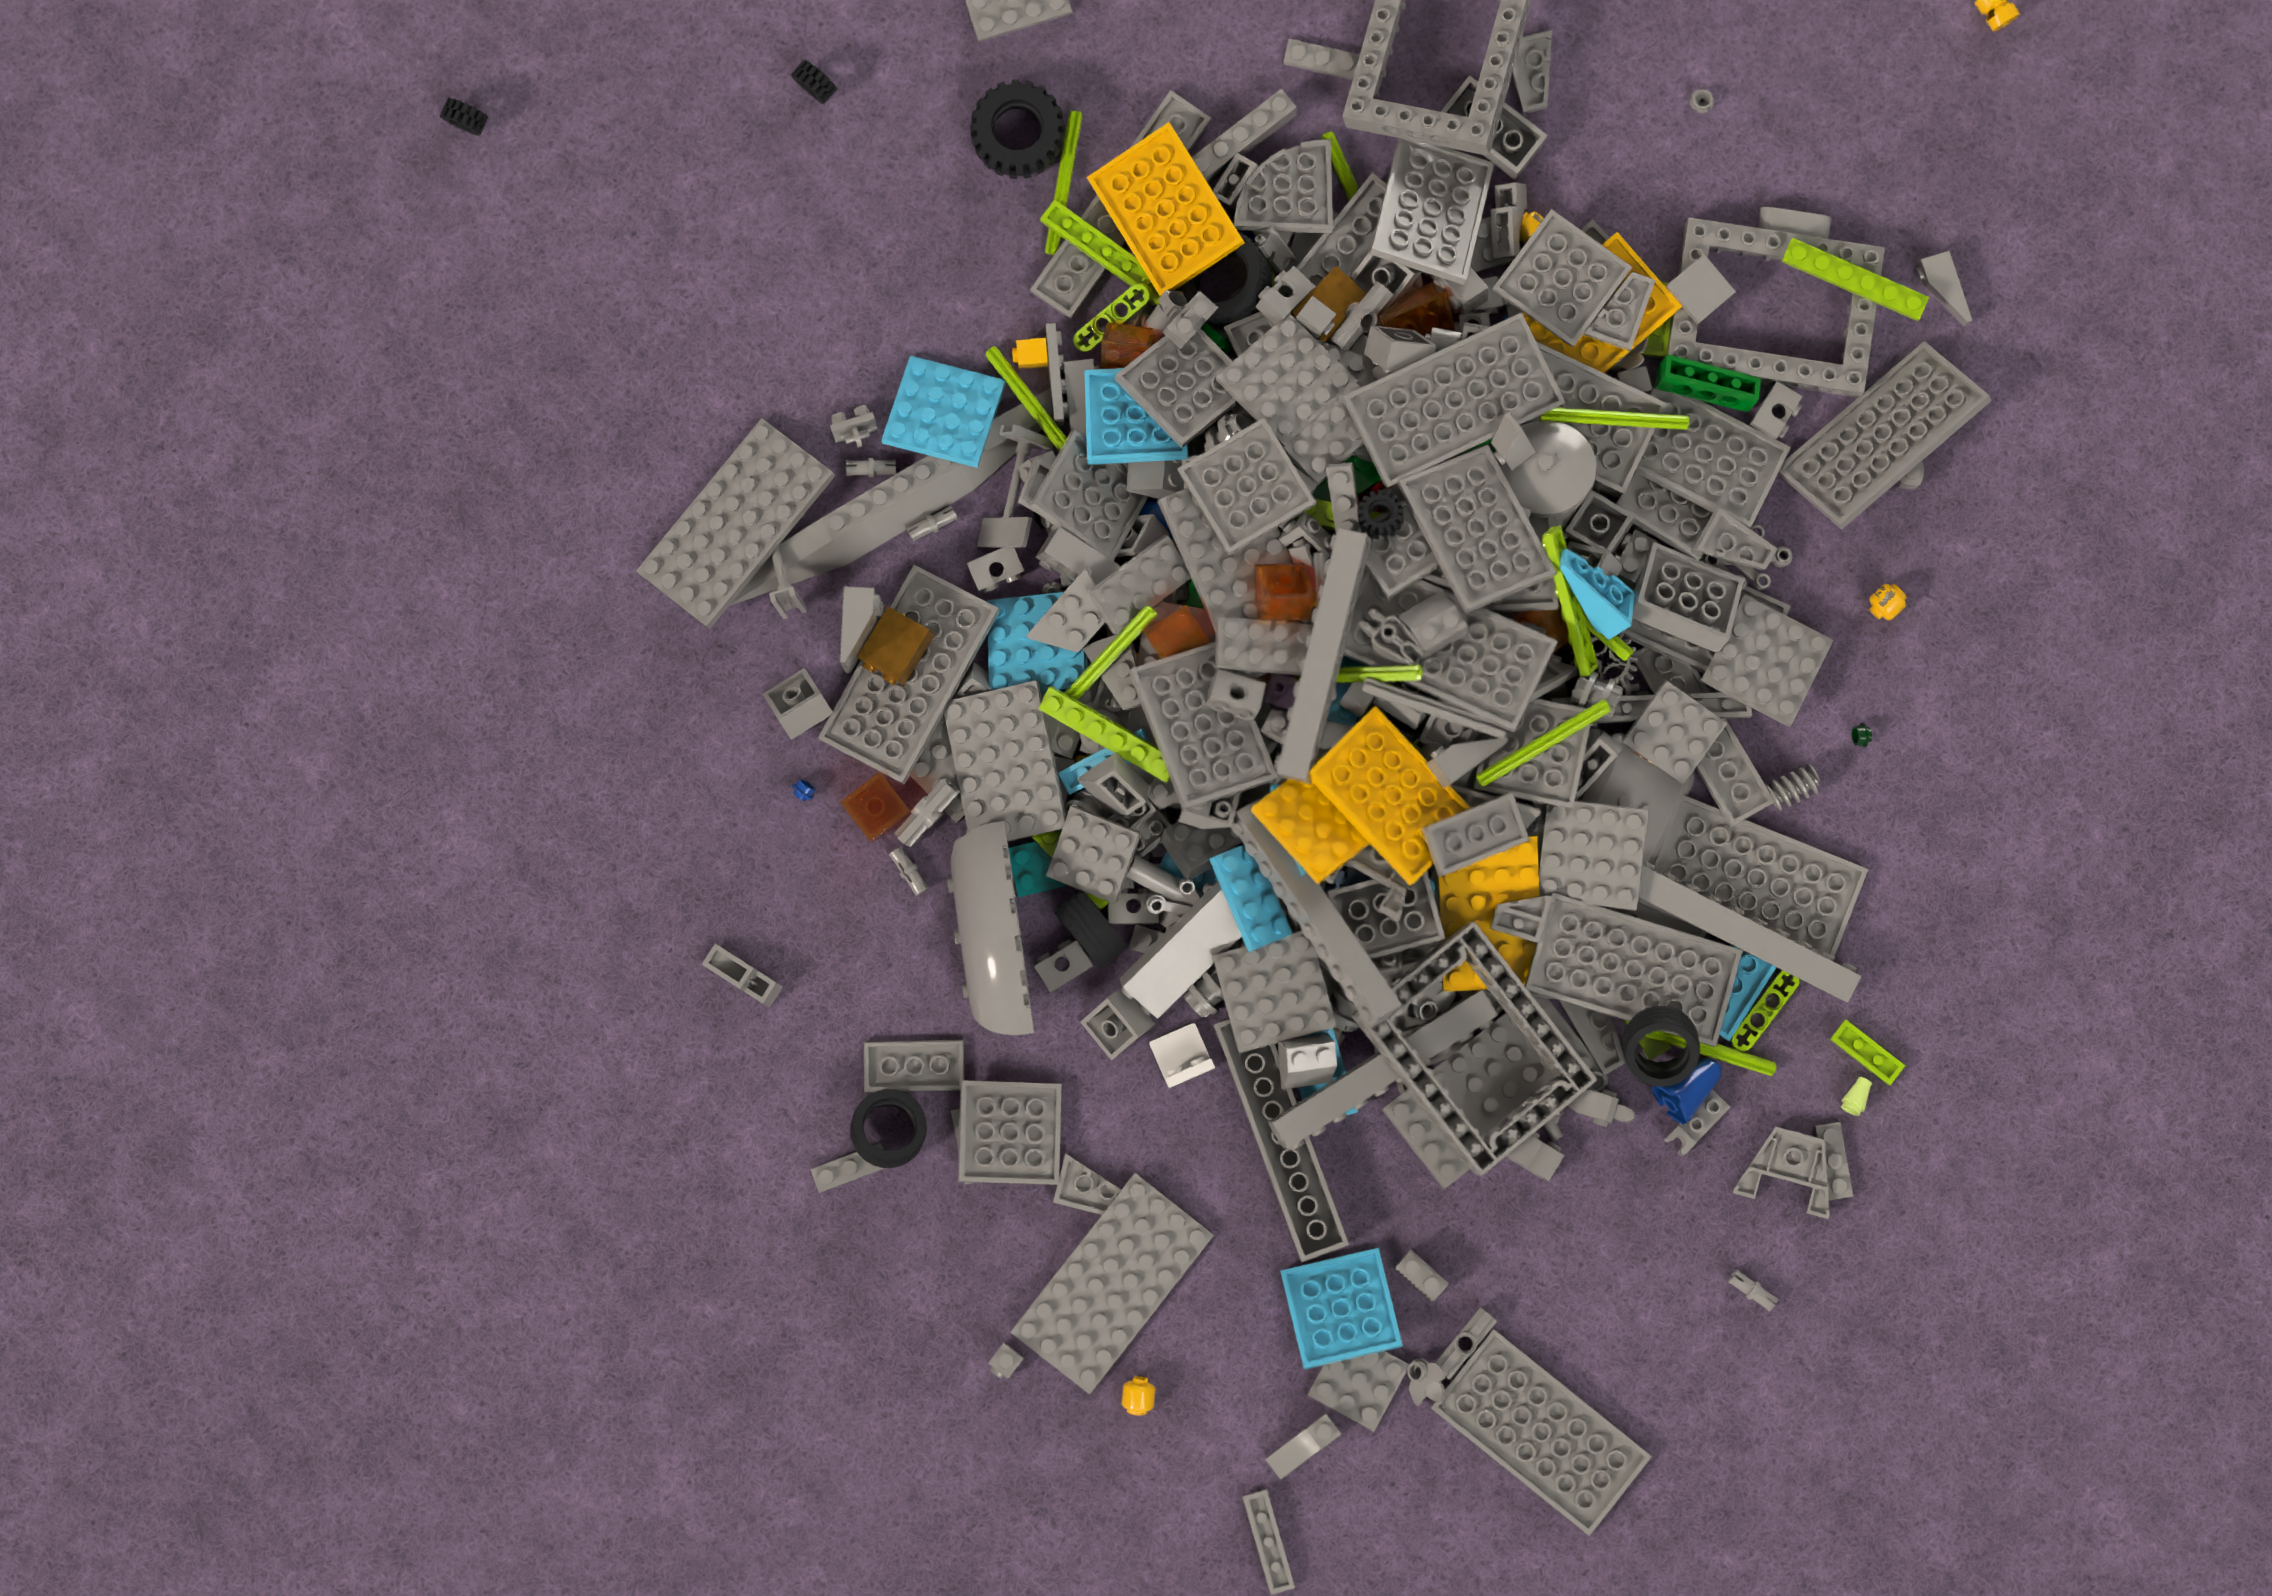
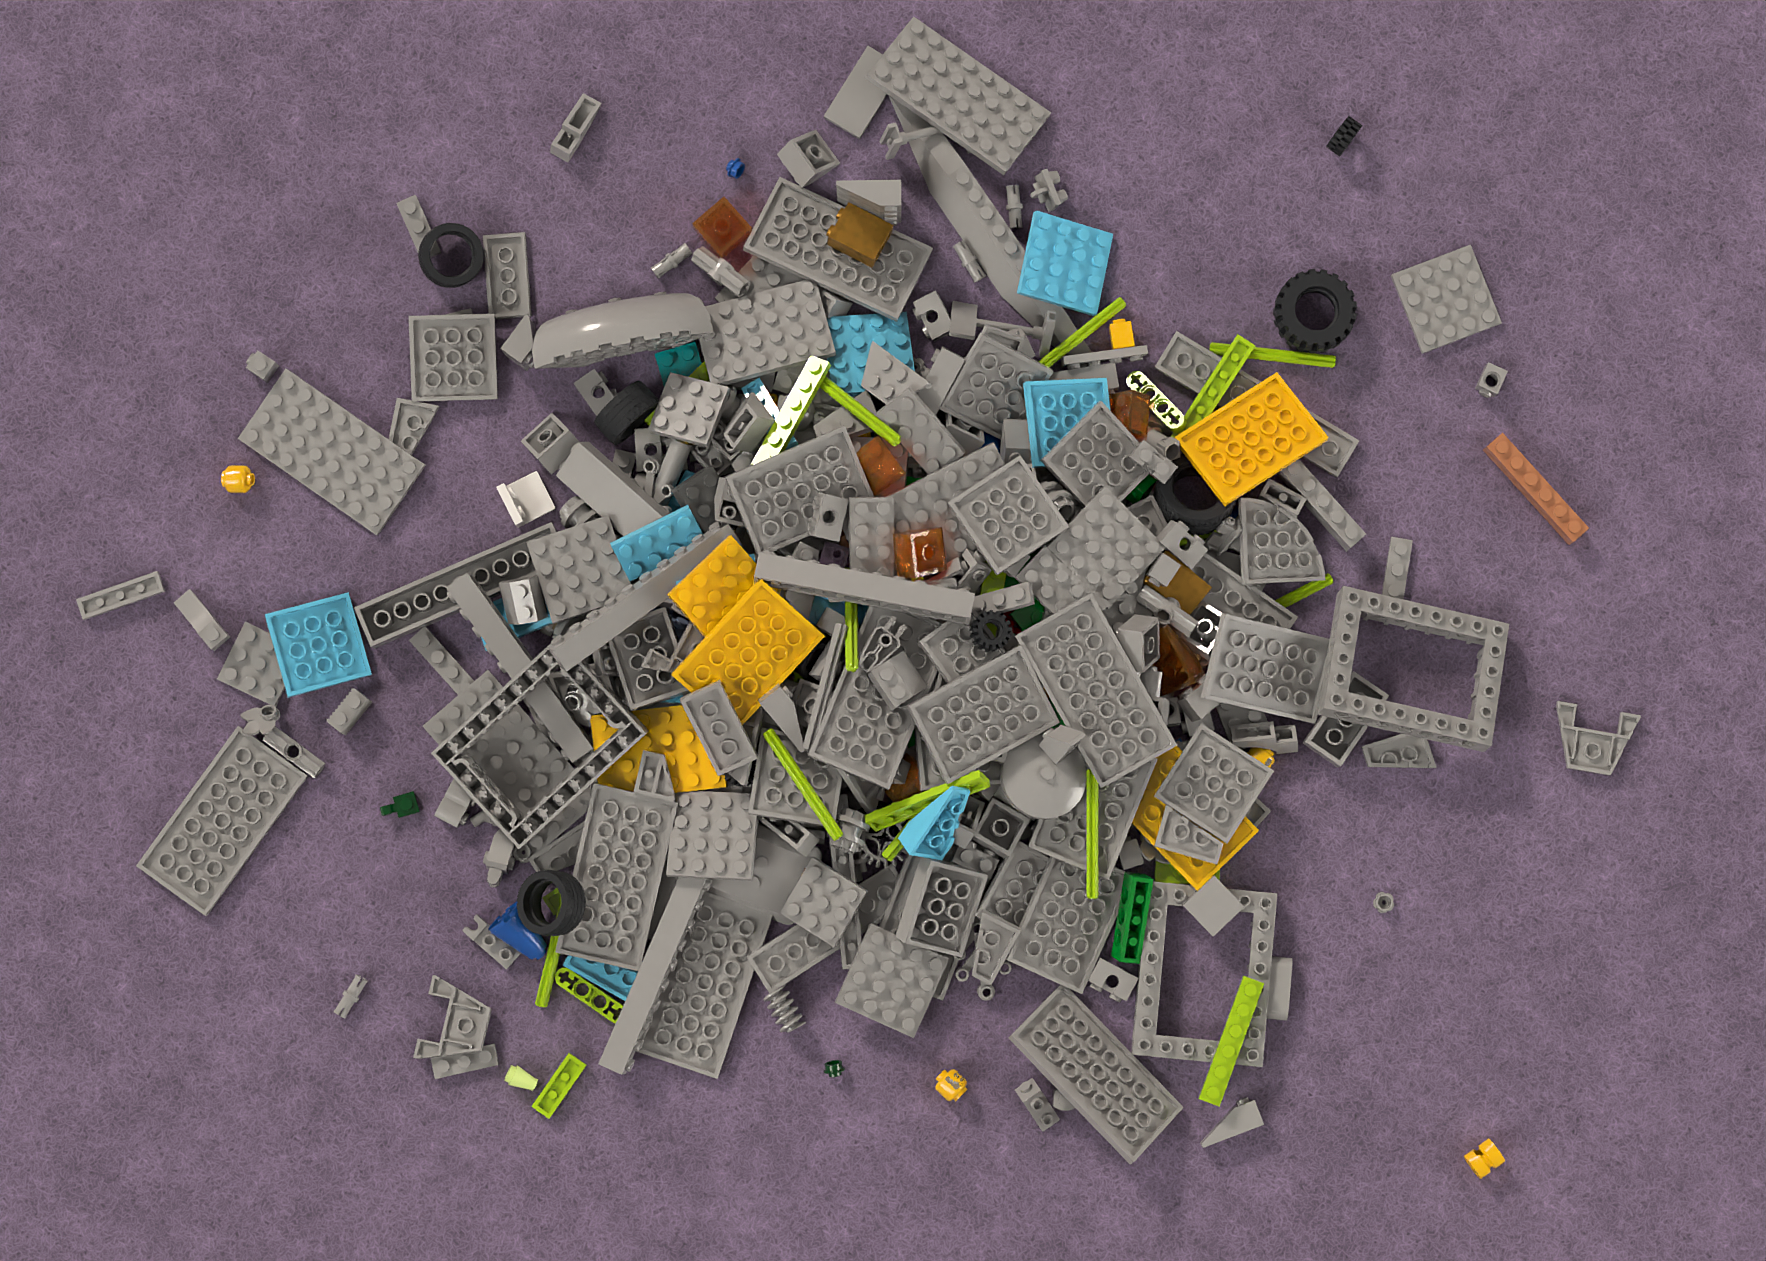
camera: 90 degrees right, 0 degrees up
(729, 642) = (857, 98): none -> light grey tile
(1001, 1048) = (520, 344): none -> light grey slope
(1367, 1164) = (441, 660): none -> light grey plate
(1533, 1217) = (403, 804): none -> dark green plate
(1912, 506) = (1037, 1104): none -> light grey bracket

